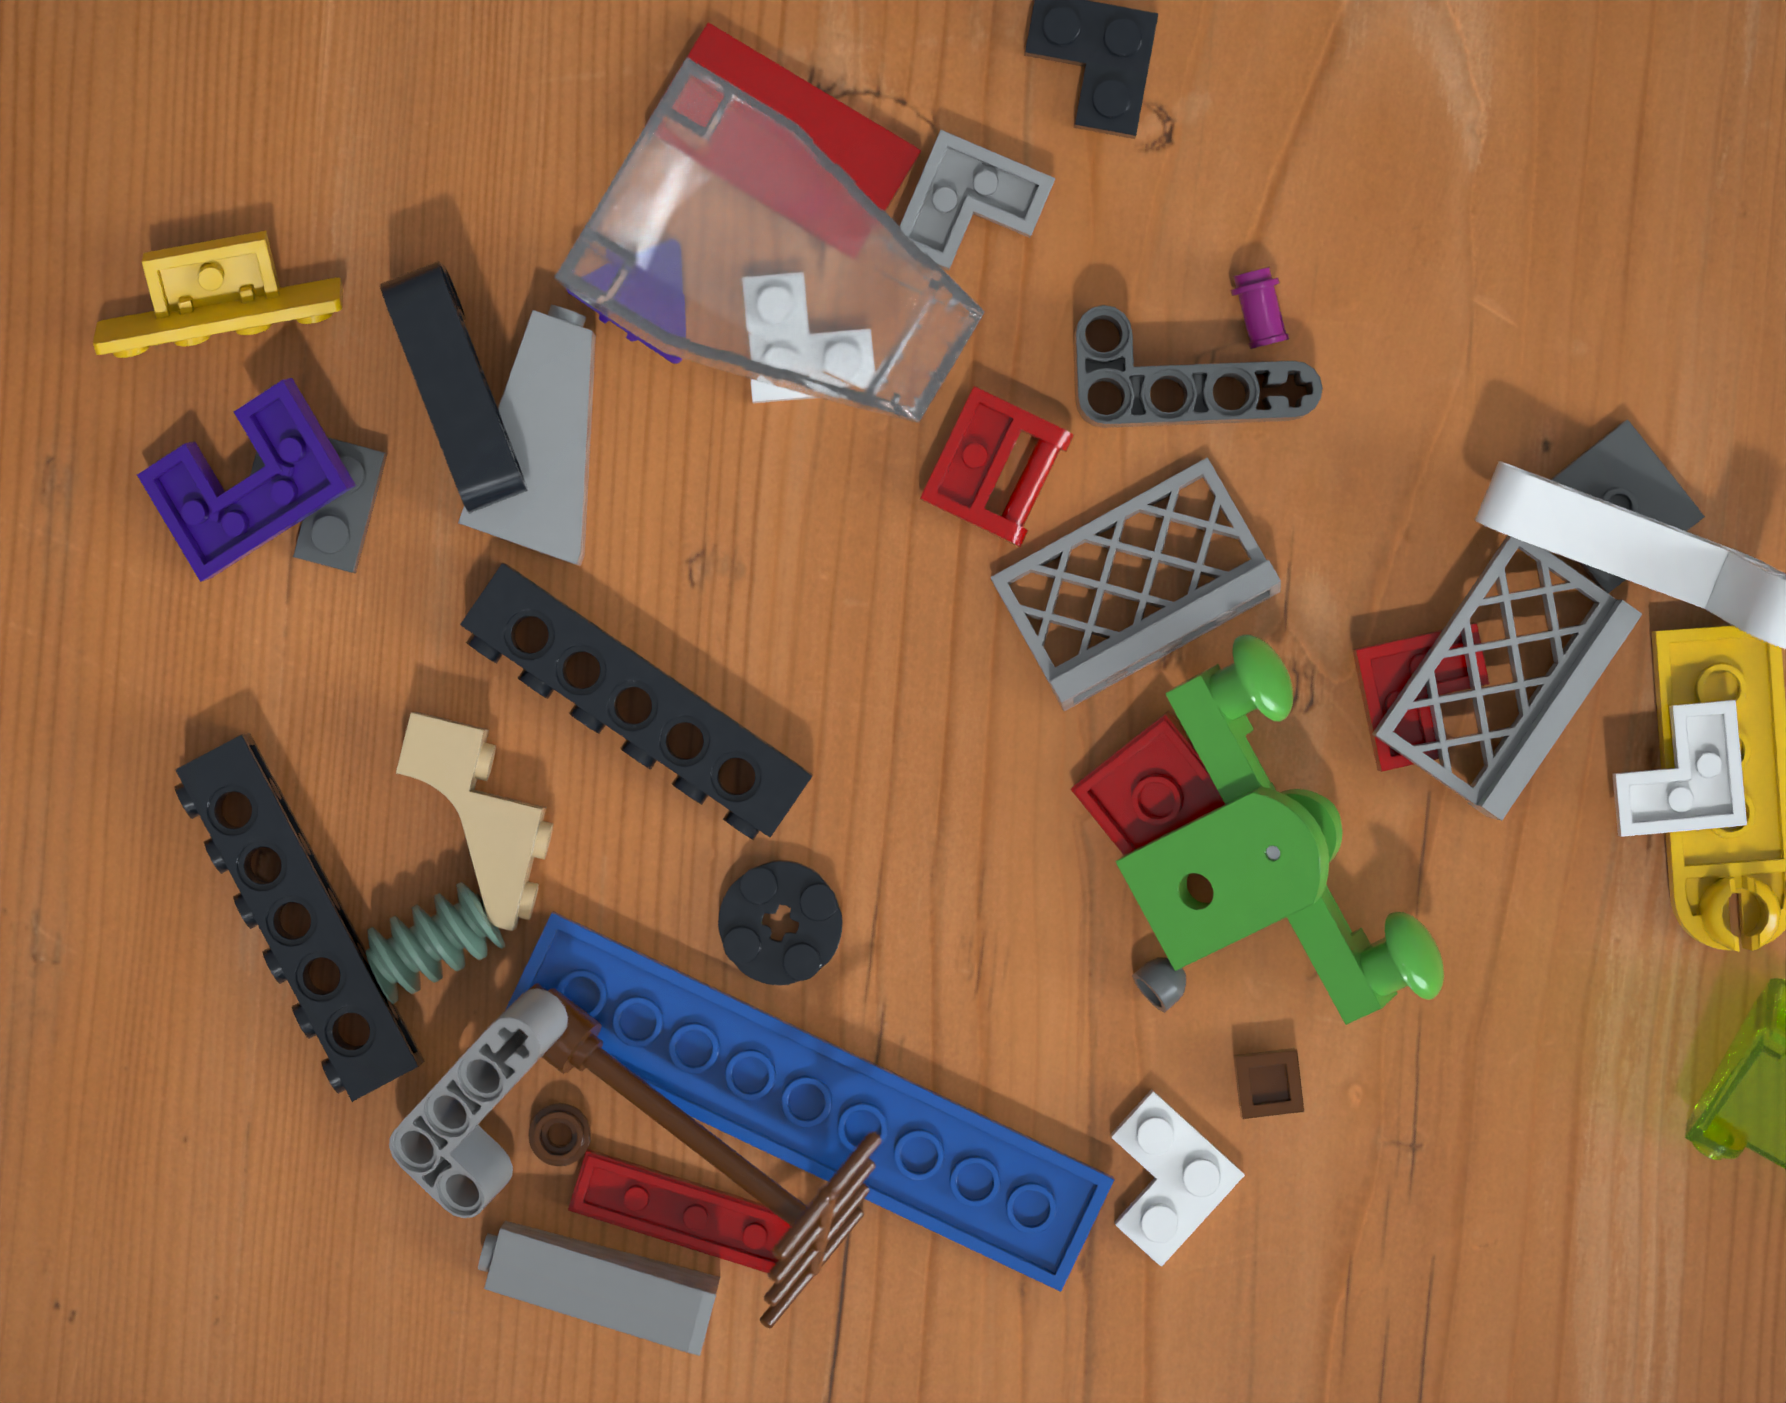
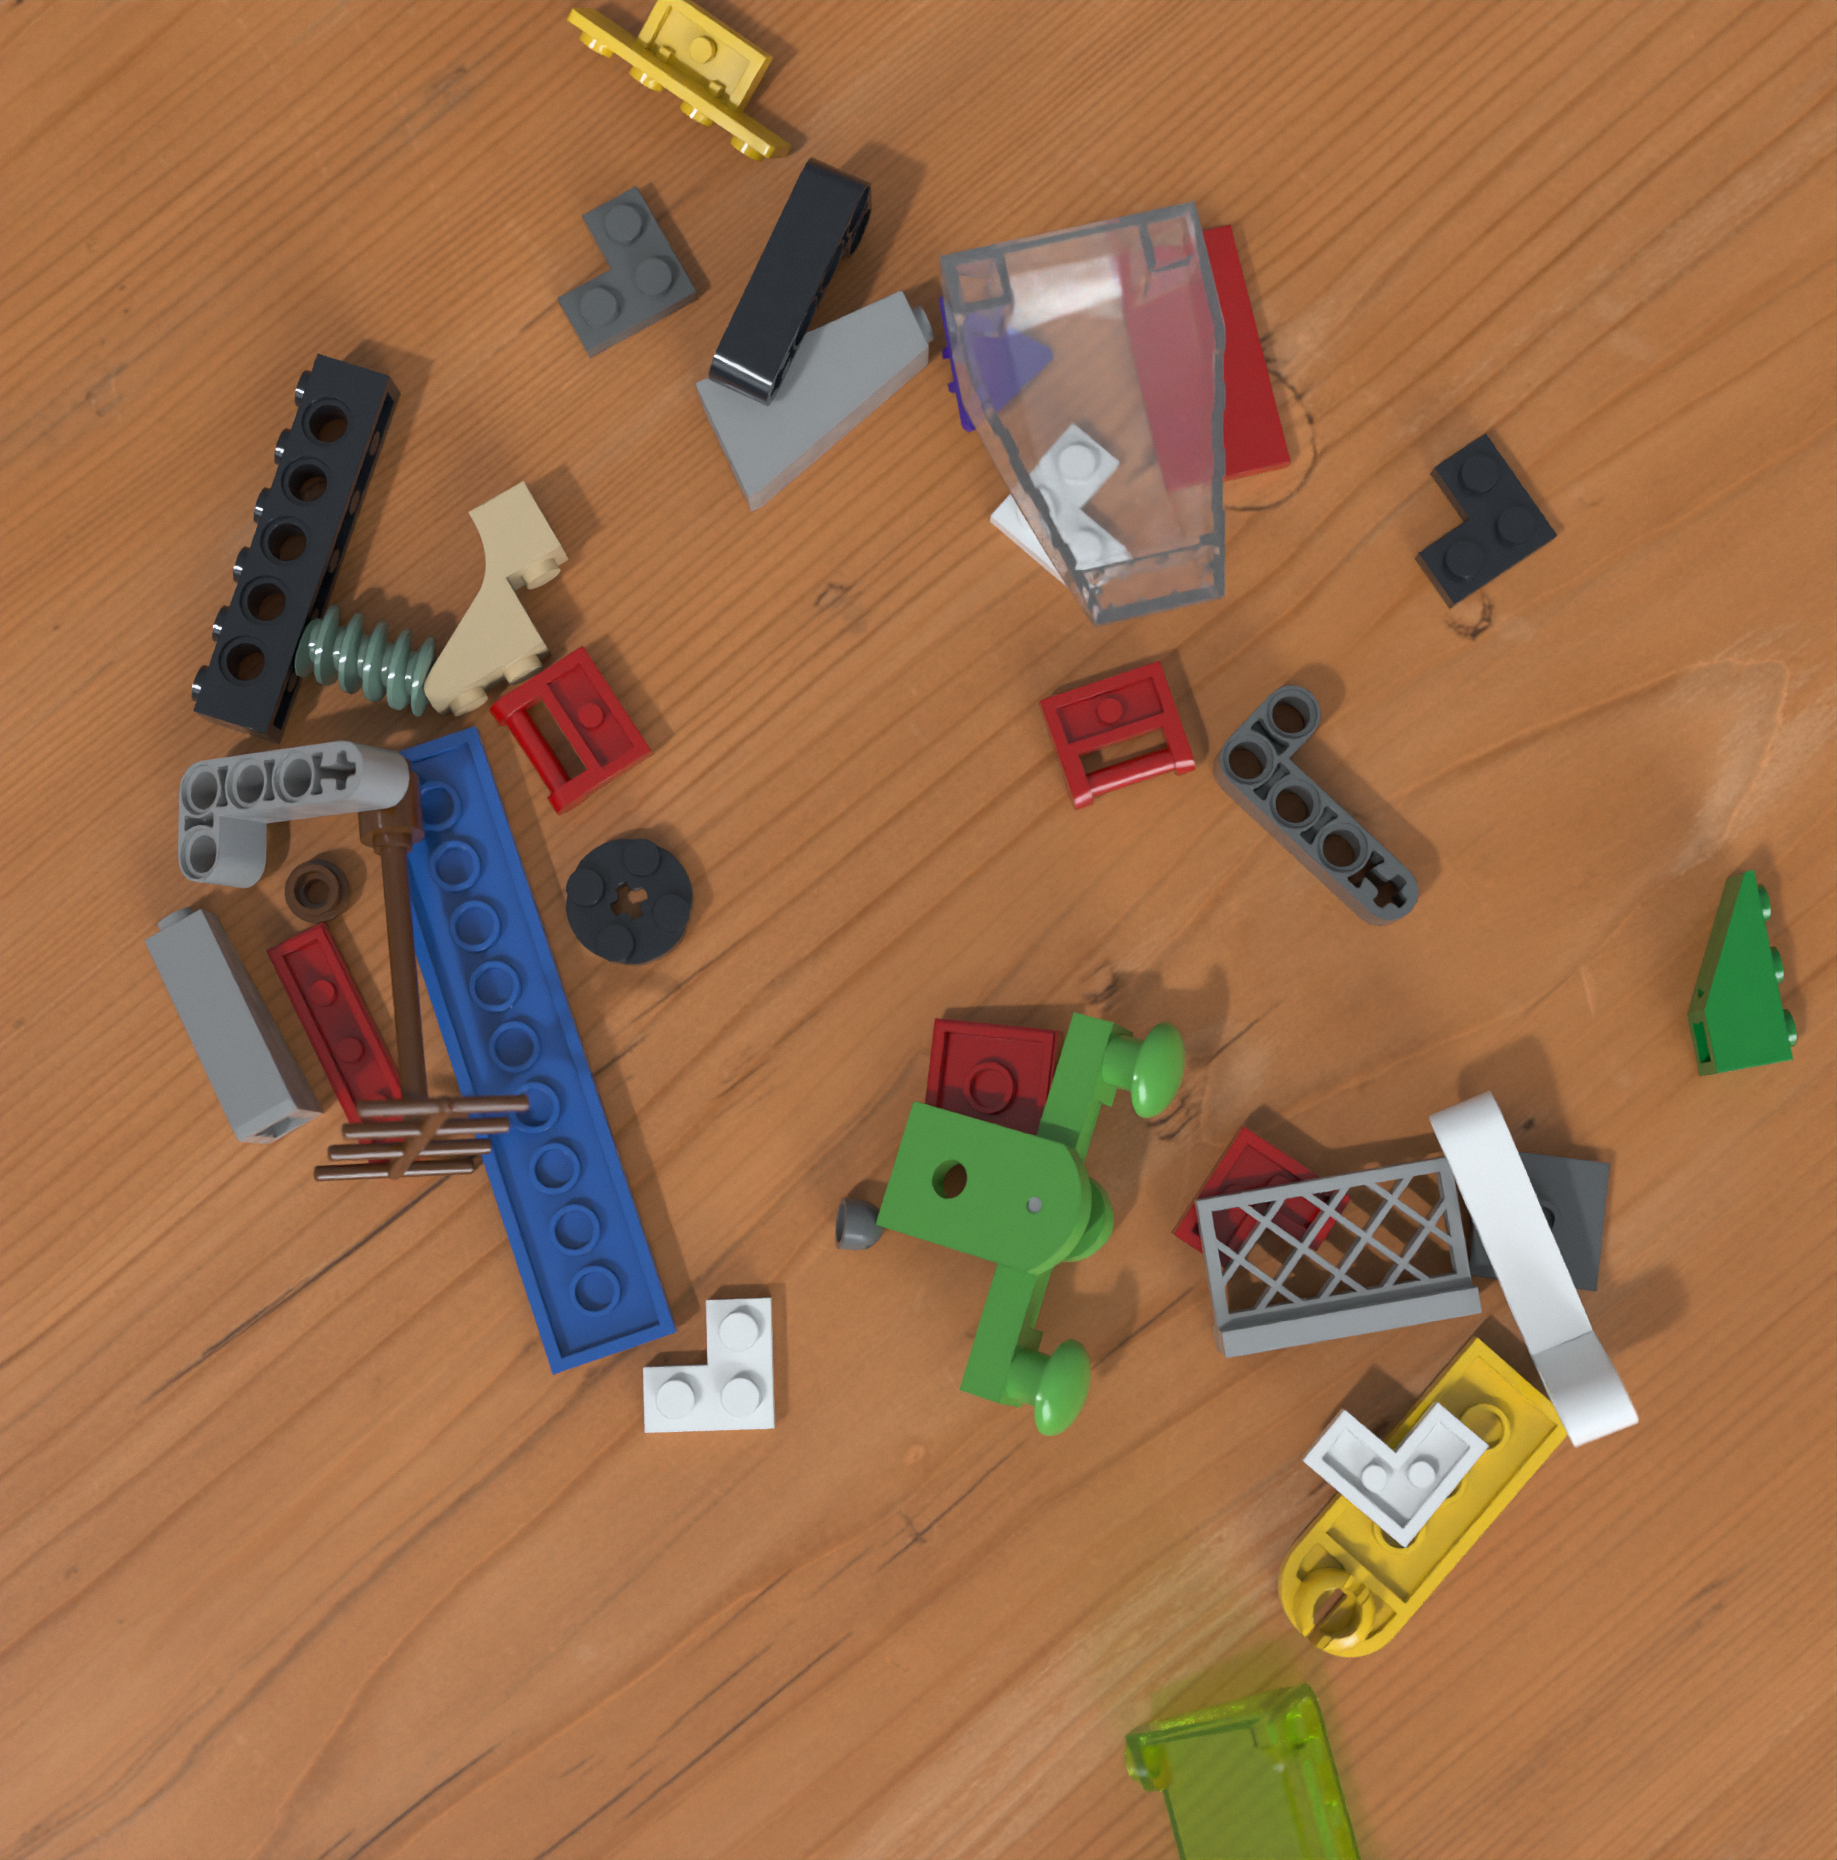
camera: 40 degrees right, 5 degrees down
(297, 480) = (611, 242): dark purple plate -> none
(514, 597) = (677, 480): black brick -> none
(623, 827) = (588, 717): none -> red plate
(969, 181) = (1304, 518): light grey plate -> none
(1160, 632) = (1116, 972): light grey fence -> none
(1260, 307) = (1421, 814): magenta pin -> none
(1268, 1083) = (859, 1379): reddish brown plate -> none
(1603, 220) = (1737, 999): none -> green slope

